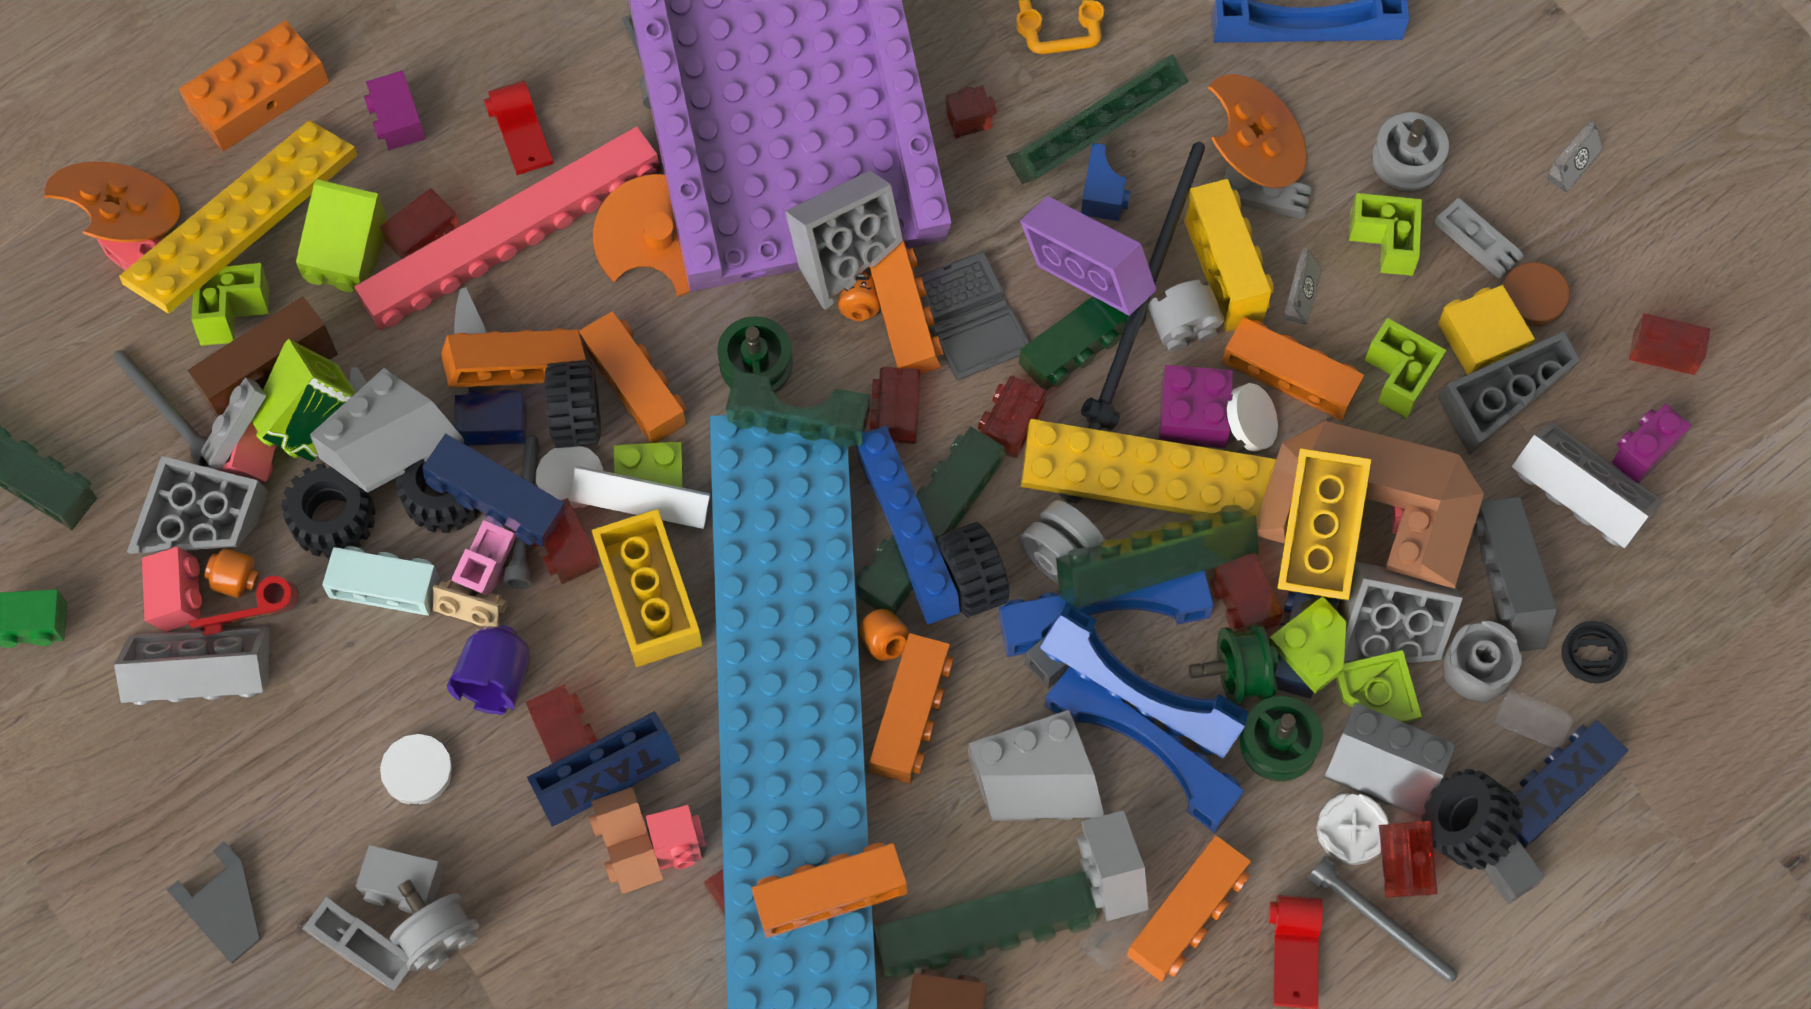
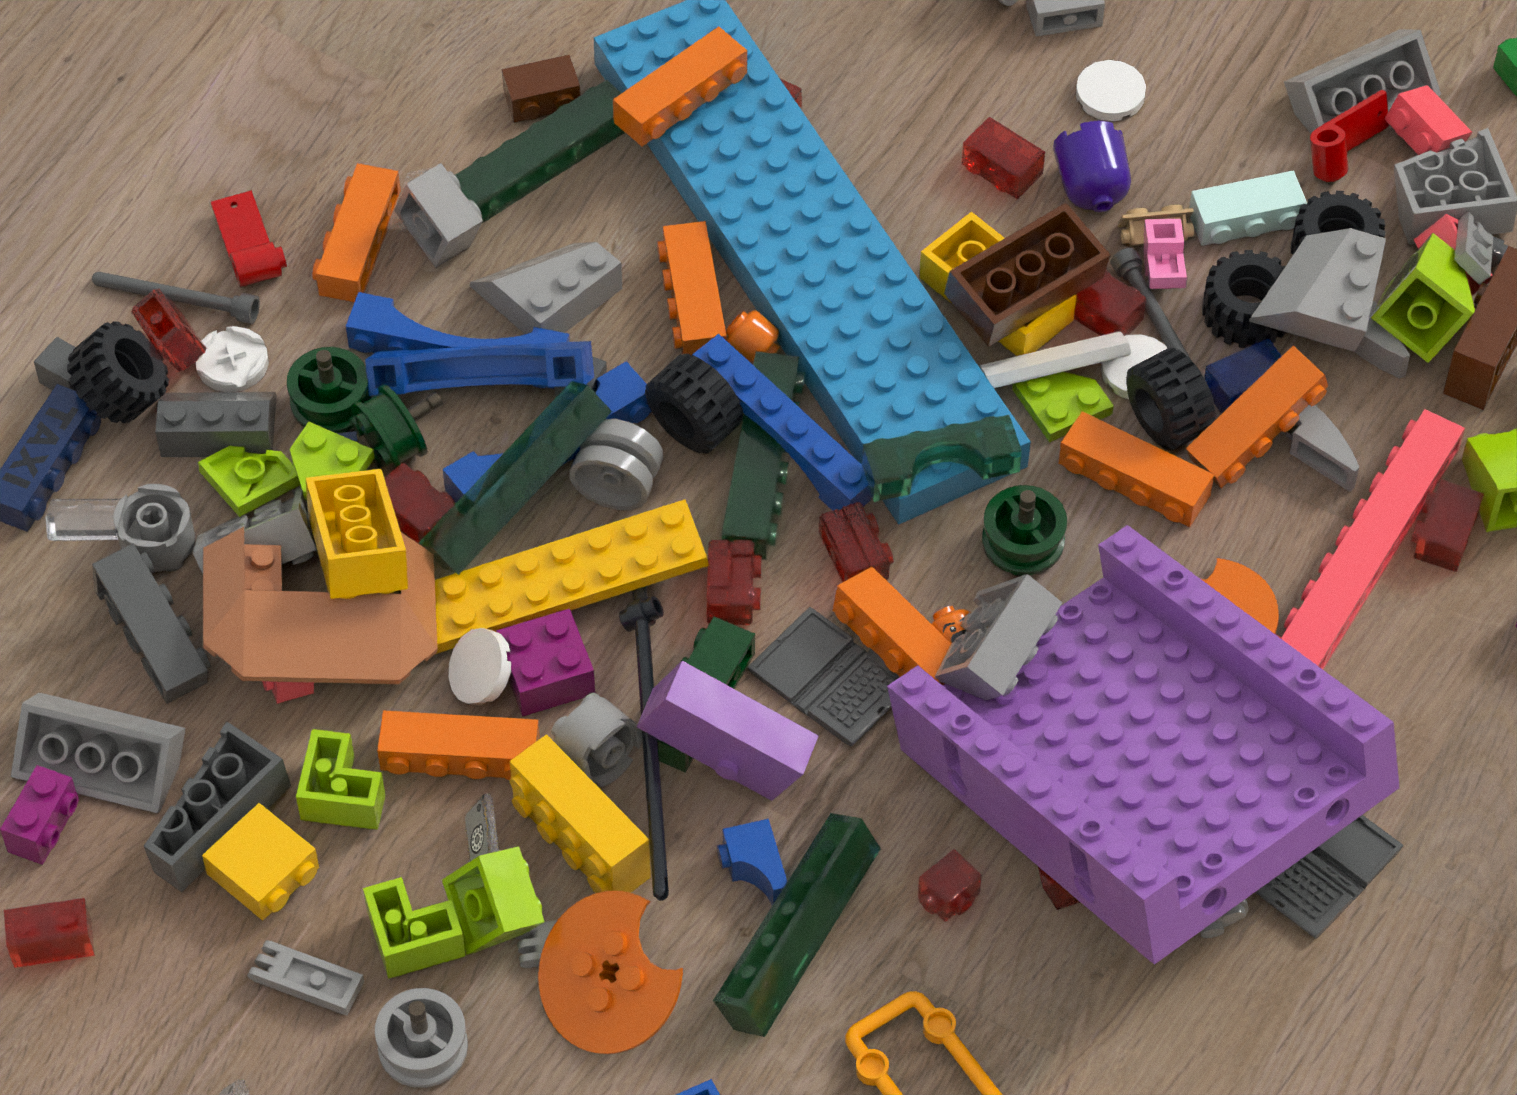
camera: 155 degrees right, 10 degrees down
(231, 573) = (1380, 159): orange head -> none
(493, 490) = (1187, 279): dark blue brick -> none
(519, 127) = (1422, 674): red door -> none
(603, 768) = (942, 135): dark blue brick -> none
(626, 839) = (879, 91): nougat brick -> none
(629, 542) = (1027, 274): none -> reddish brown brick
(676, 837) = (845, 102): coral brick -> none
(1318, 216) = (493, 899): none -> lime slope
(1538, 292) = (219, 938): dark orange tile -> none
(1608, 637) = (48, 580): black piece -> none

